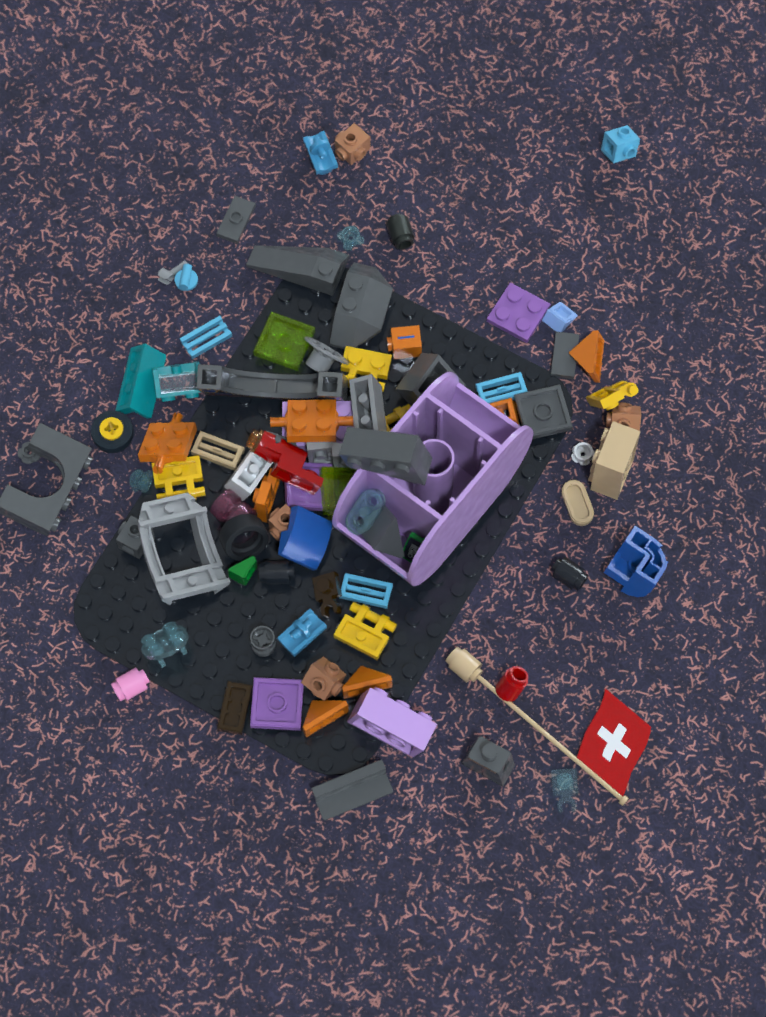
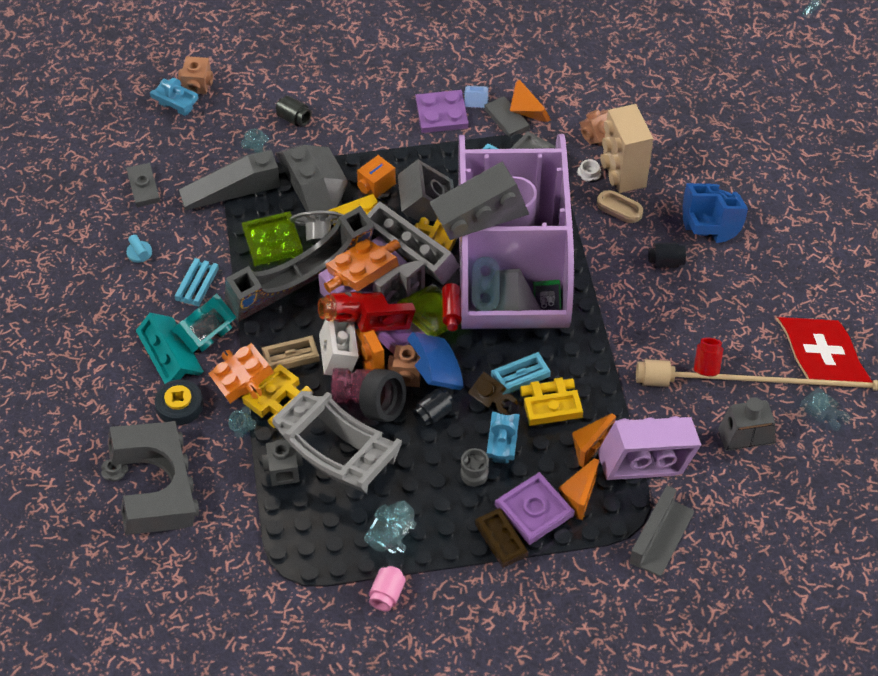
camera: 40 degrees left, 15 degrees down
(169, 275) = (120, 257): light grey hand -> none
(243, 571) = (403, 427): green slope -> none
(324, 679) = (551, 450): nougat brick -> none
(608, 397) = (575, 113): yellow plate -> none

